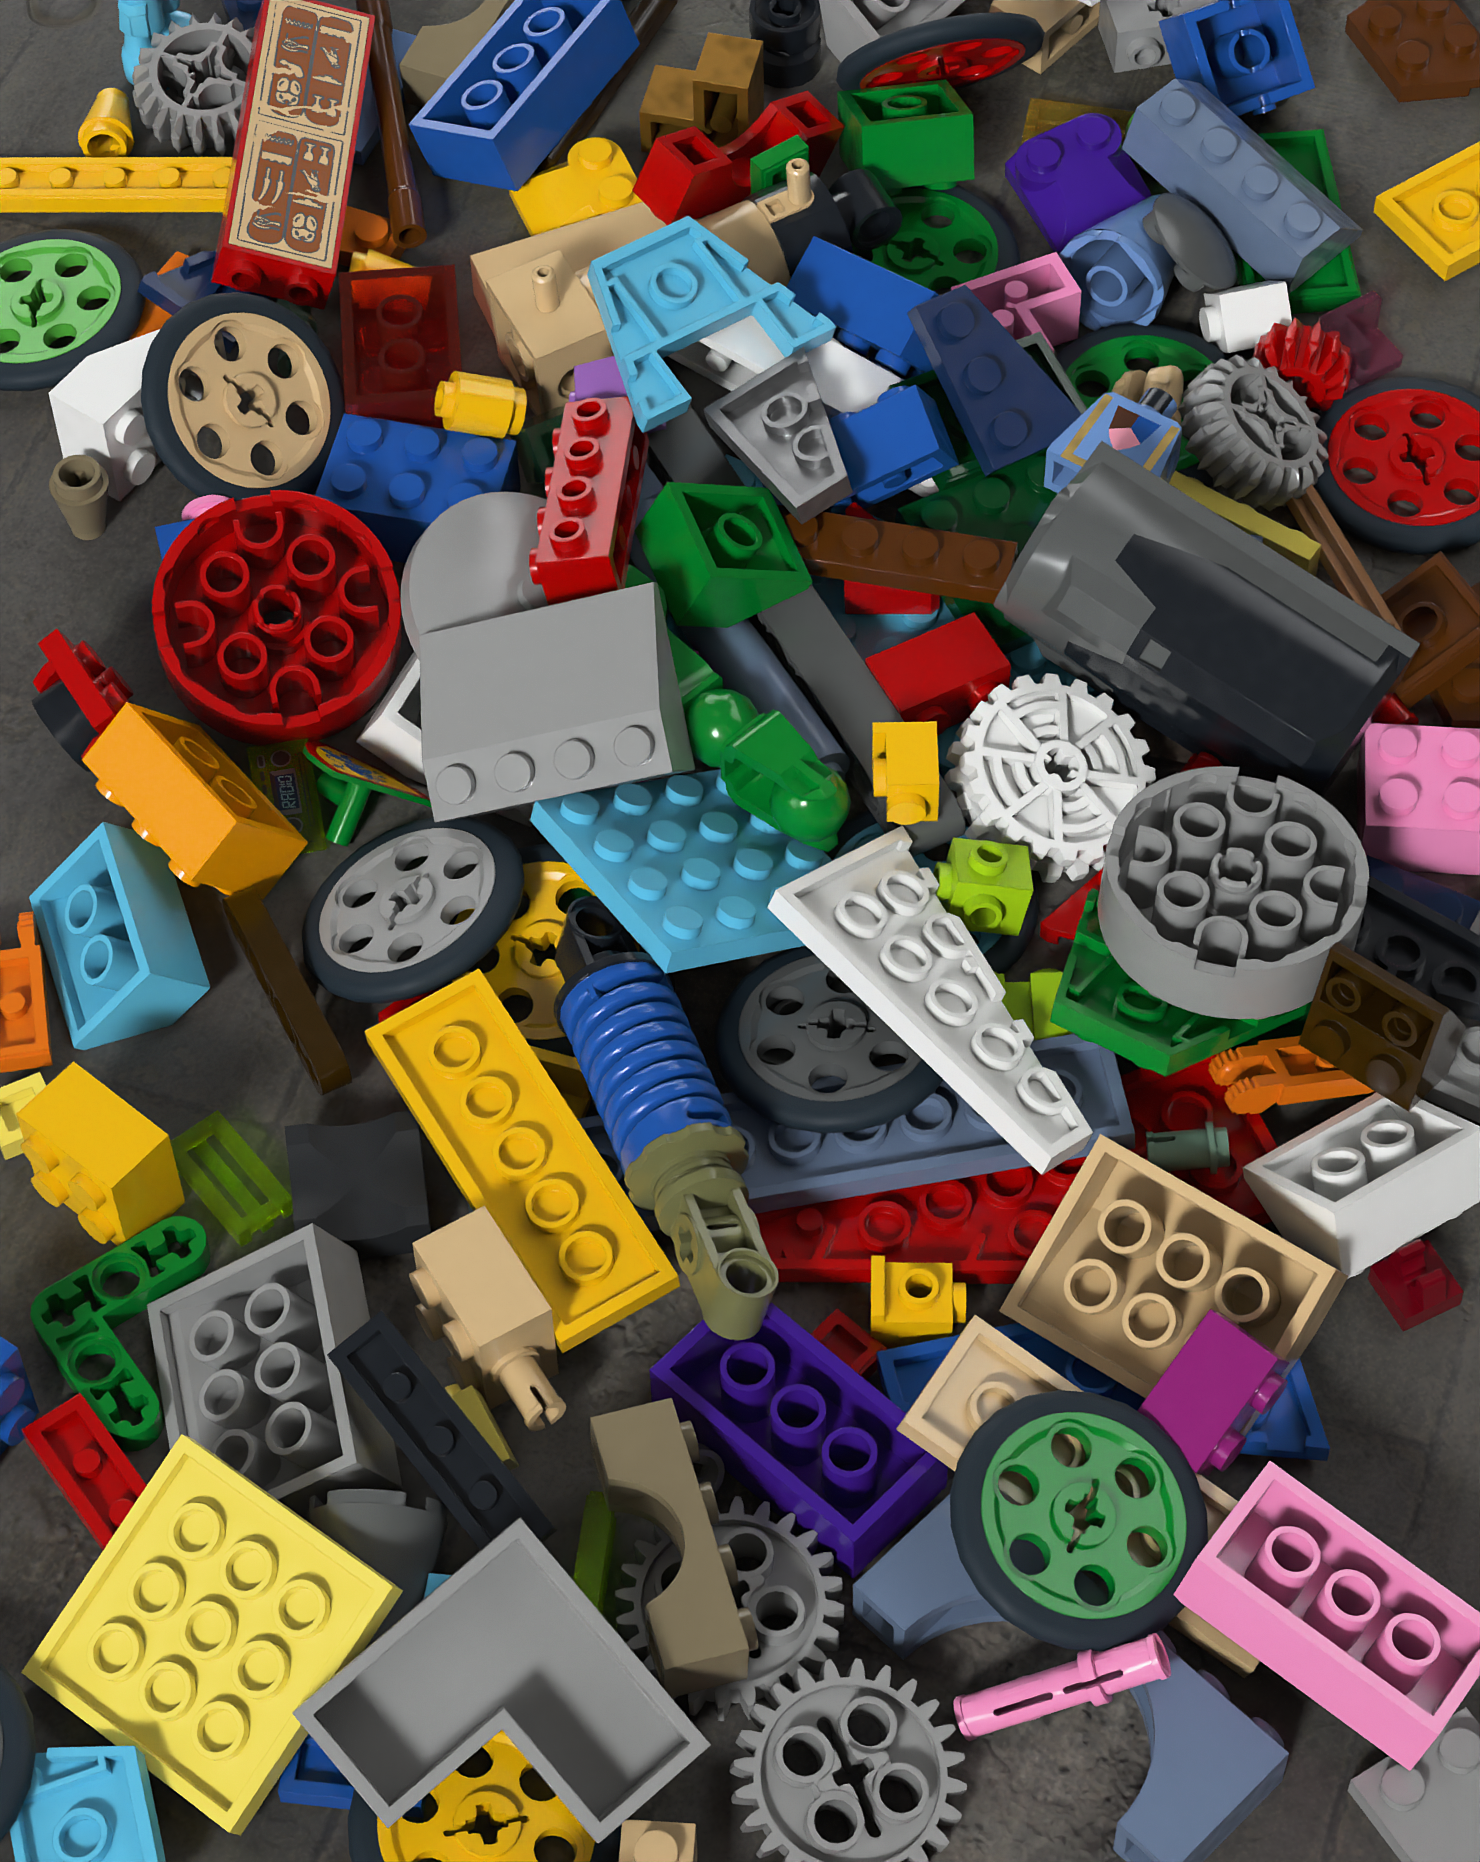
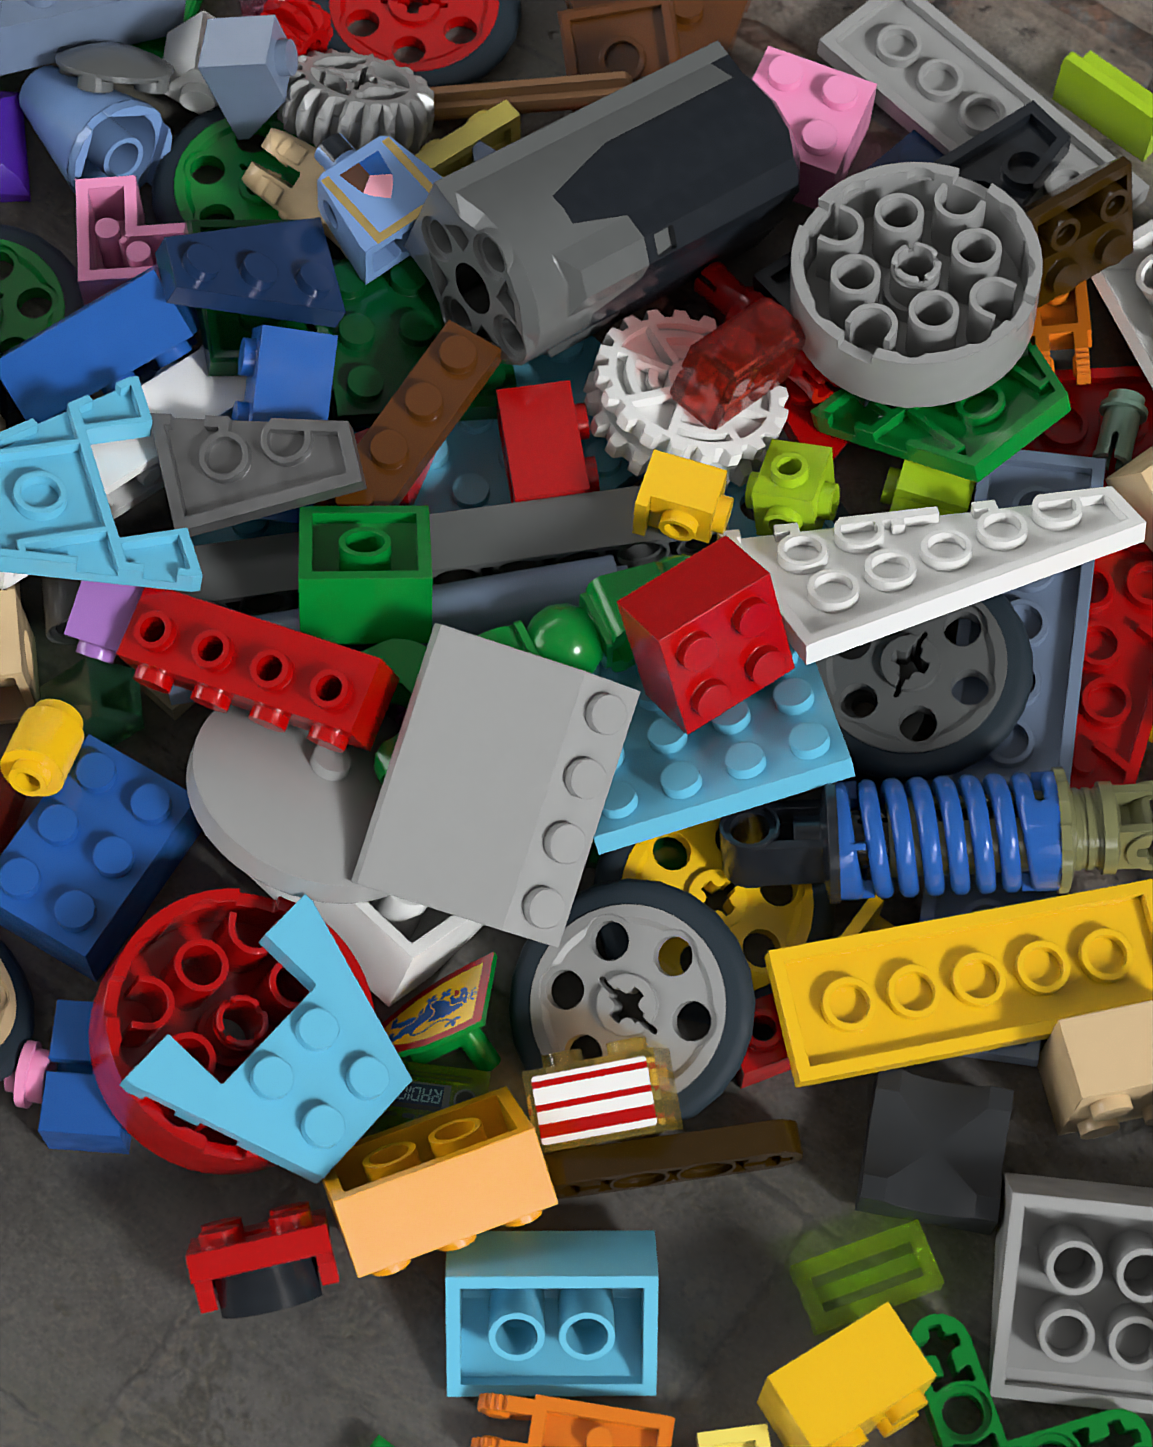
camera: 75 degrees left, 10 degrees up
(242, 672) = (310, 1081): none -> medium azure wing
(312, 906) = (602, 1097): none -> brick
(753, 808) = (706, 634): none -> red brick
(1077, 777) = (738, 363): none -> clear red brick
(1221, 317) = (247, 68): none -> sand blue slope

